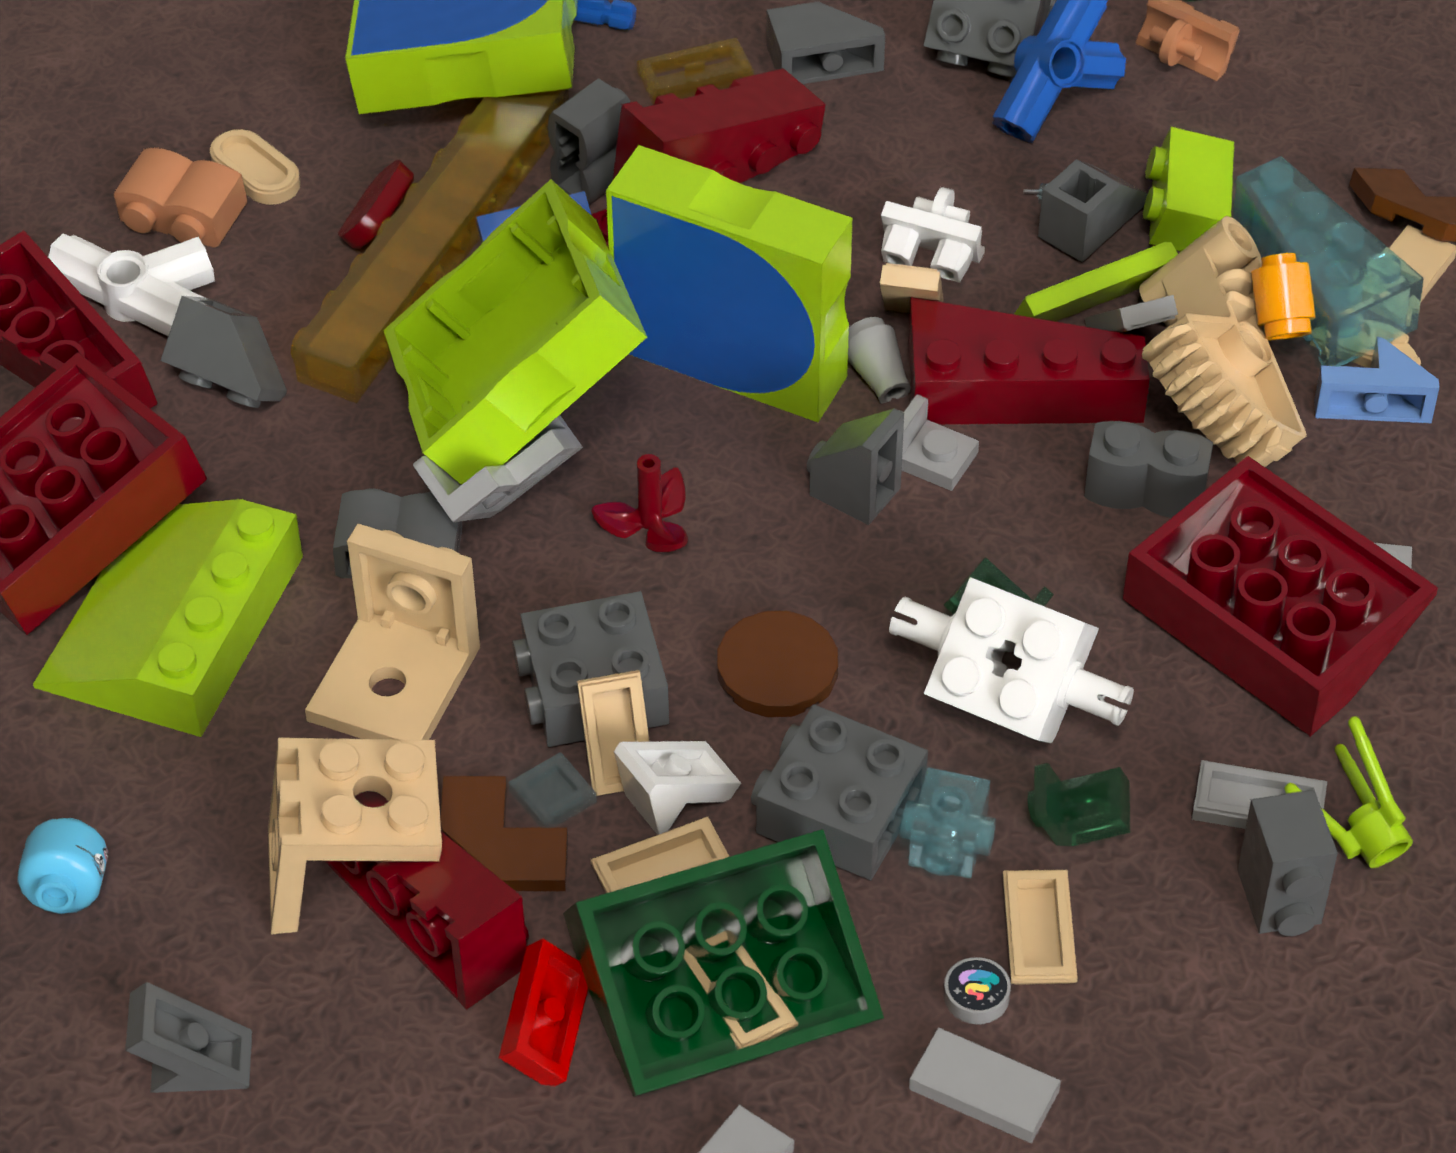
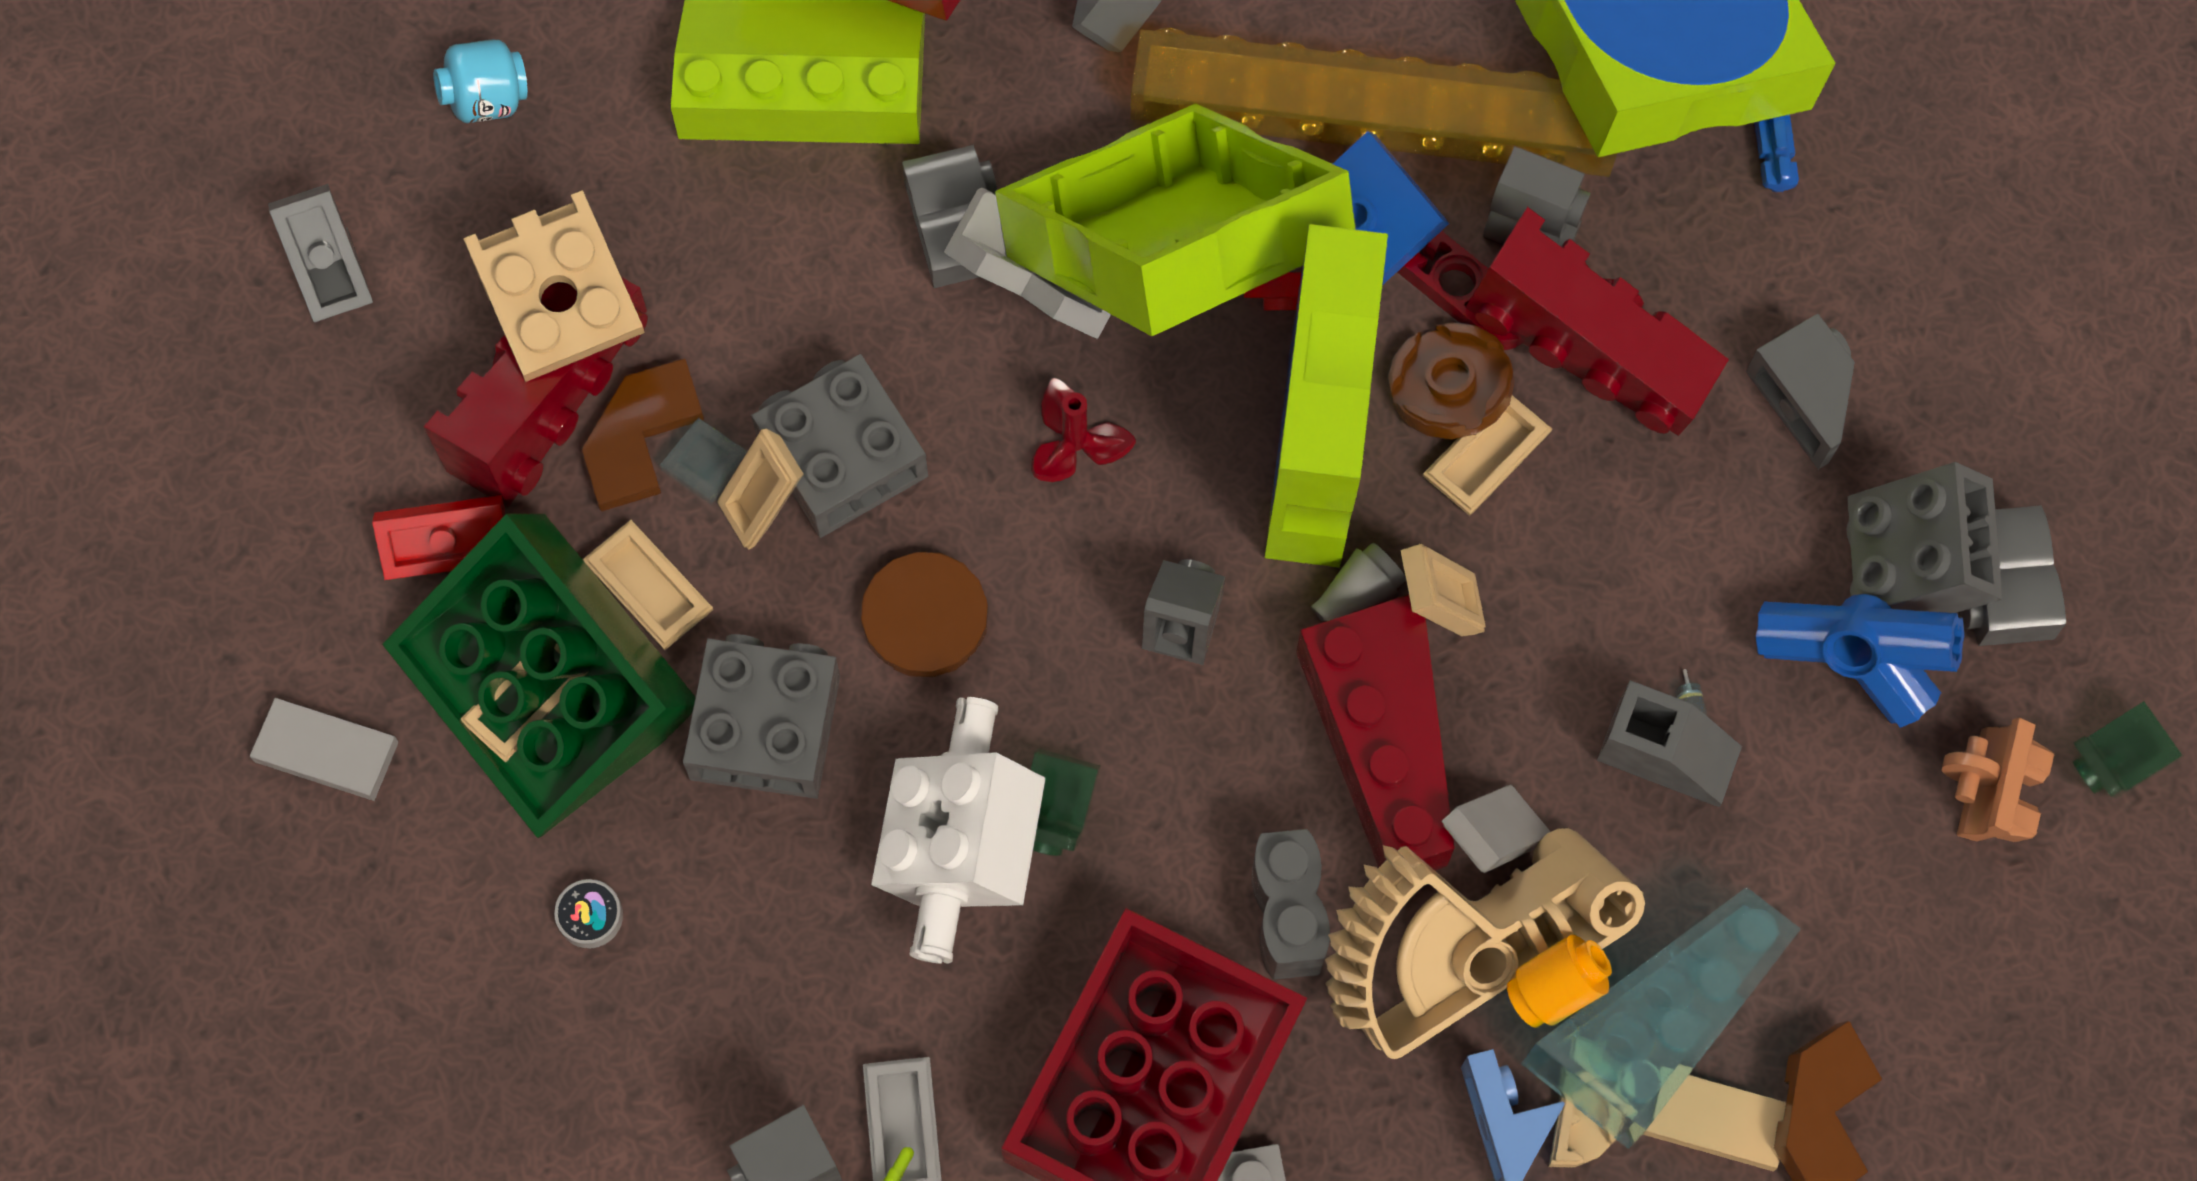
camera: 70 degrees right, 20 degrees up
(376, 204) = (1389, 36): dark red tile -> none
(410, 627) = (831, 263): tan bracket -> none
(668, 775) = (731, 556): white slope -> none
(696, 74) = (1712, 291): clear yellow tile -> none
(934, 450) = (1257, 675): light grey bracket -> none
(935, 227) = (1556, 565): white hips -> none
(949, 823) = (767, 846): clear light blue brick -> none
(984, 1085) = (484, 950): light grey tile -> none
(1039, 927) = (678, 951): tan tile -> none
(1080, 807) = (825, 948): clear green bracket -> none
(1096, 285) = (1543, 781): lime tile -> none
(1189, 186) = (1727, 845): lime brick -> none

